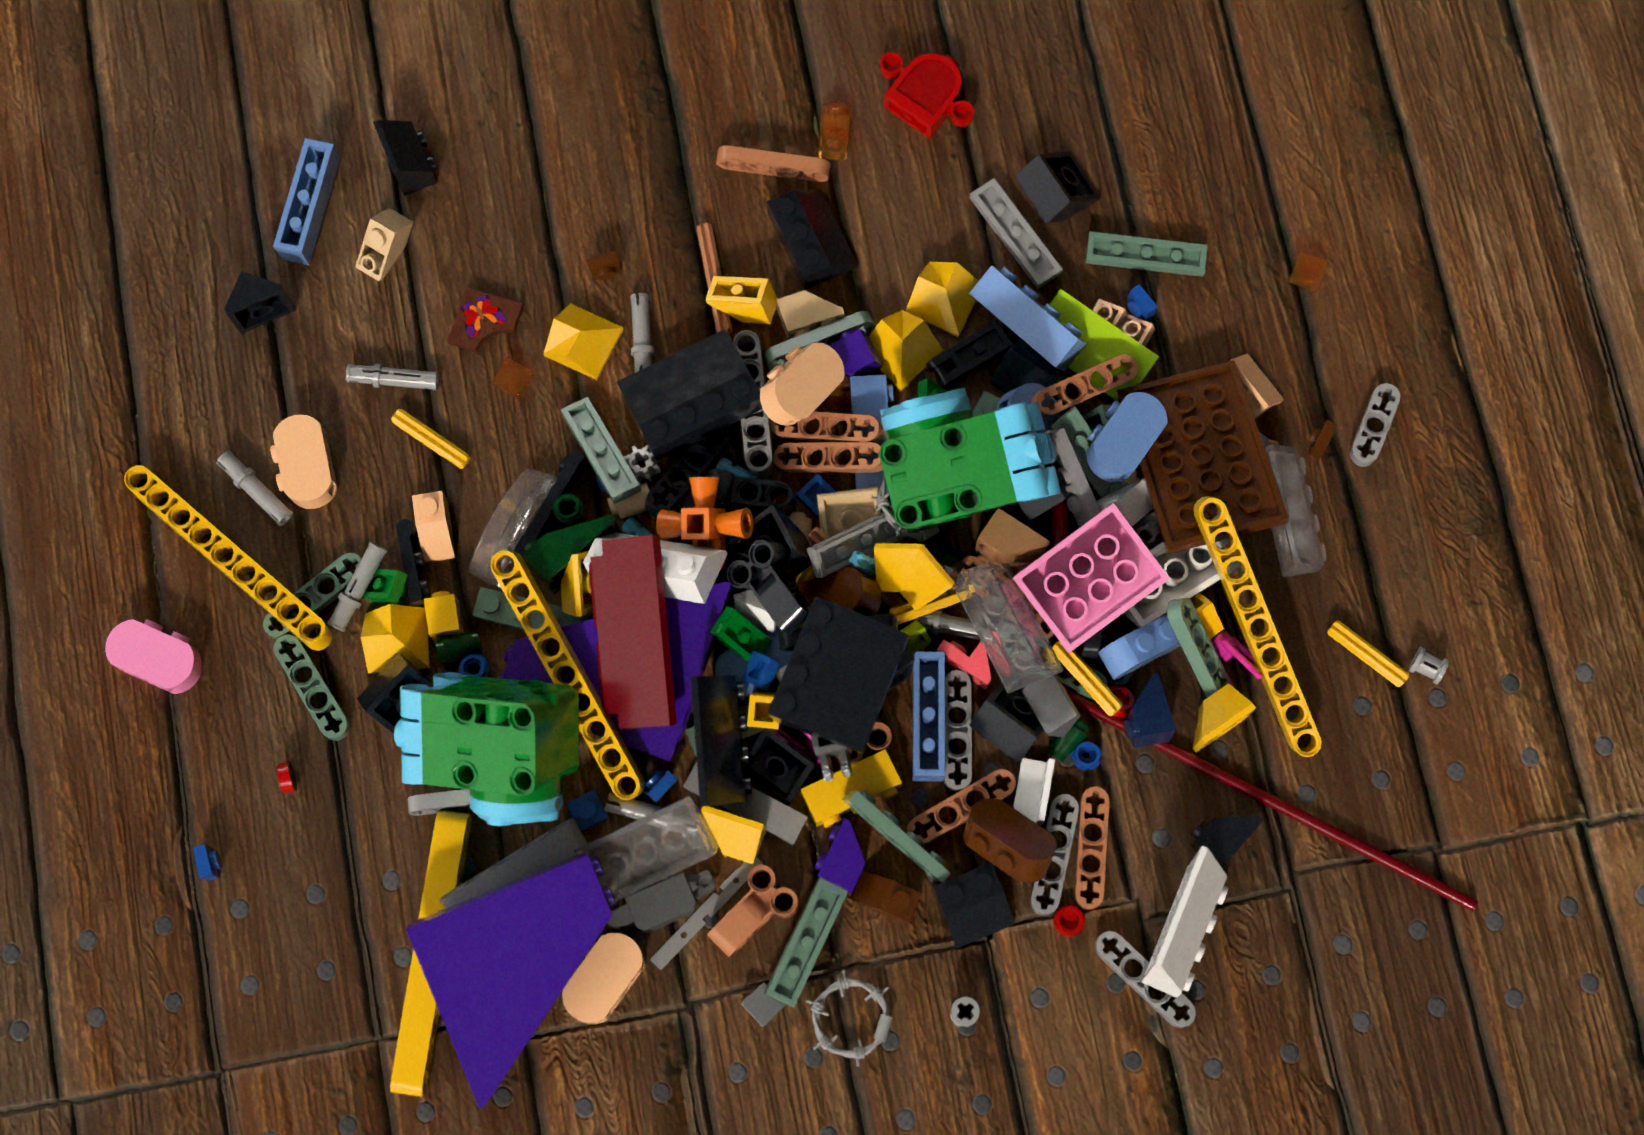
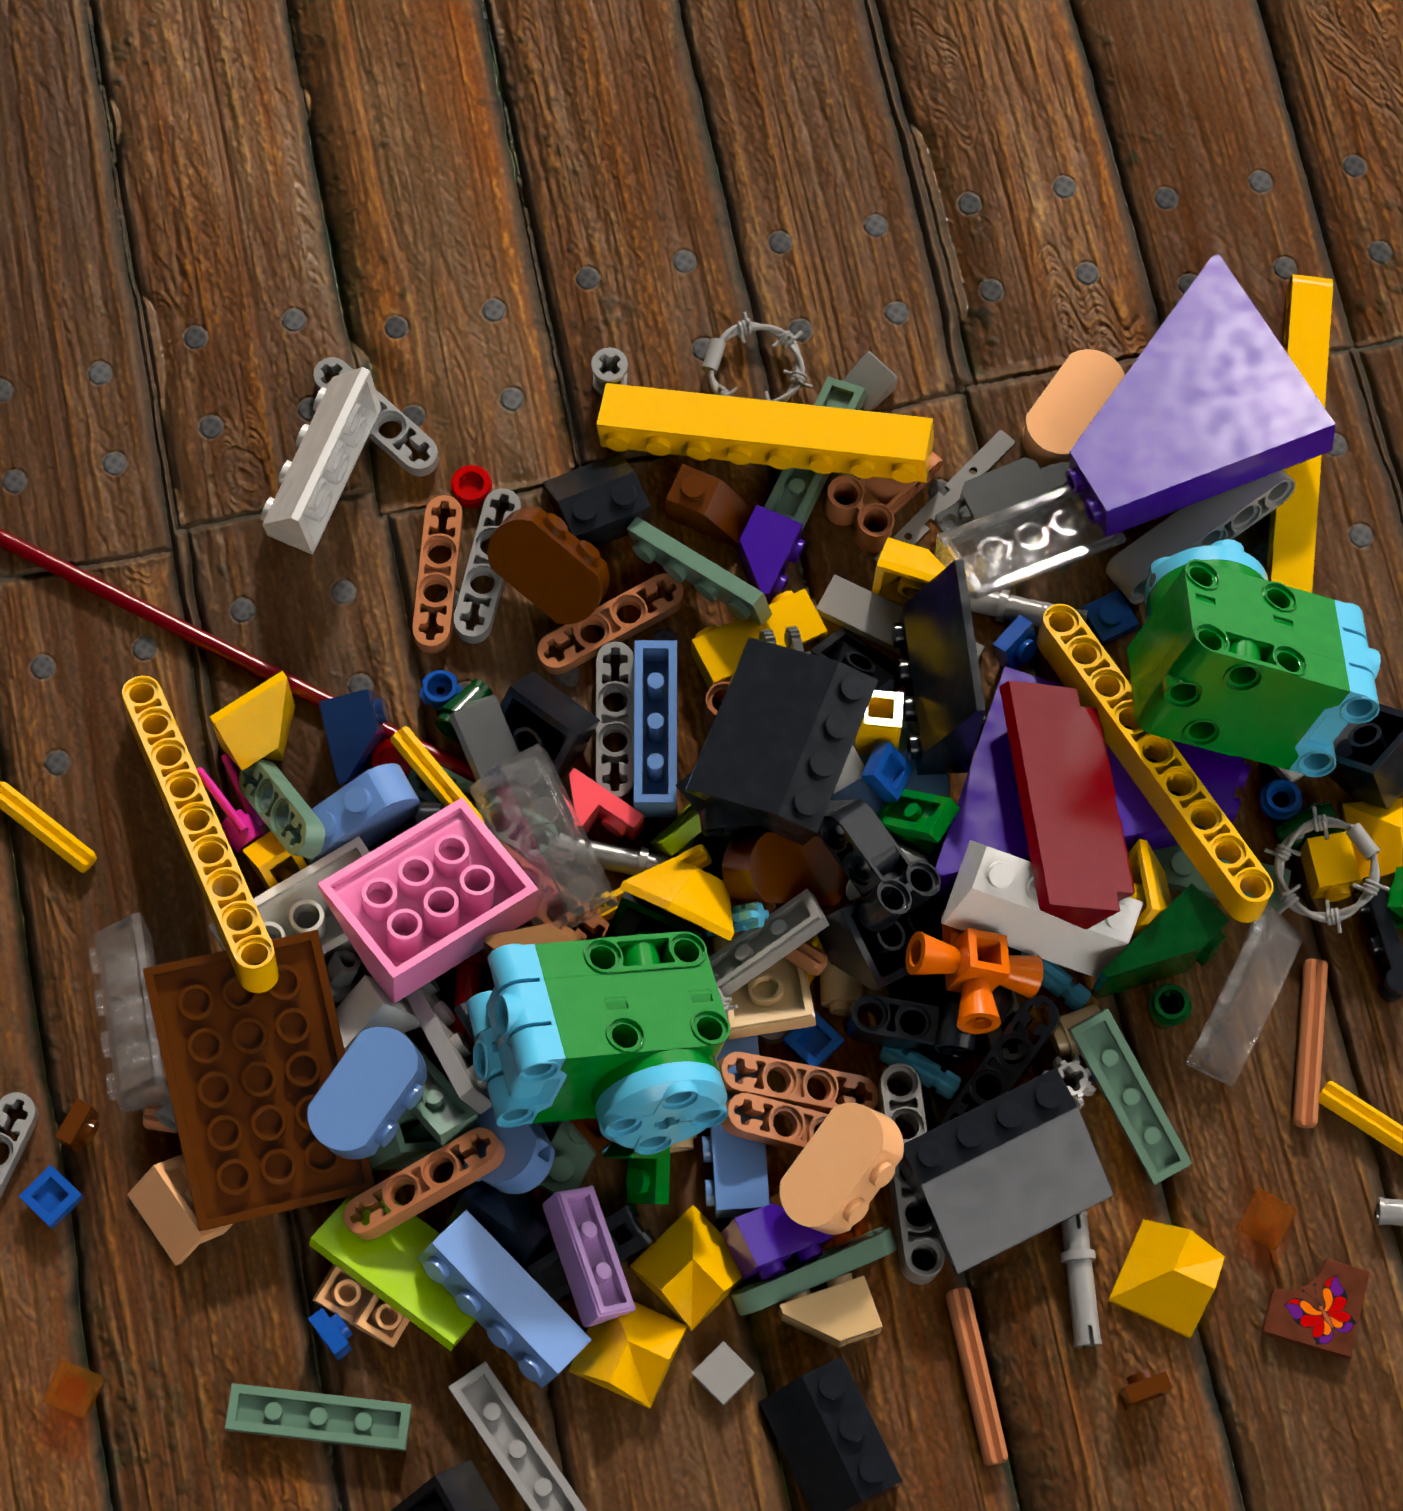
camera: 175 degrees right, 5 degrees down
(423, 622) = (1363, 843): none -> light grey piece
(433, 526) = (1359, 994): light nougat slope -> none
(471, 495) = (1310, 1043): none -> nougat axle
(570, 471) = (1171, 1076): black plate -> none
(743, 298) = (933, 1332): yellow slope -> none
(843, 949) = (766, 433): none -> yellow brick
(881, 281) = (723, 1373): none -> light grey tile
(971, 348) = (588, 1255): none -> lavender slope
(1033, 789) = (513, 641): white panel -> none
(1224, 835) = (260, 583): black slope -> none
(1335, 394) = (51, 1196): none -> blue plate

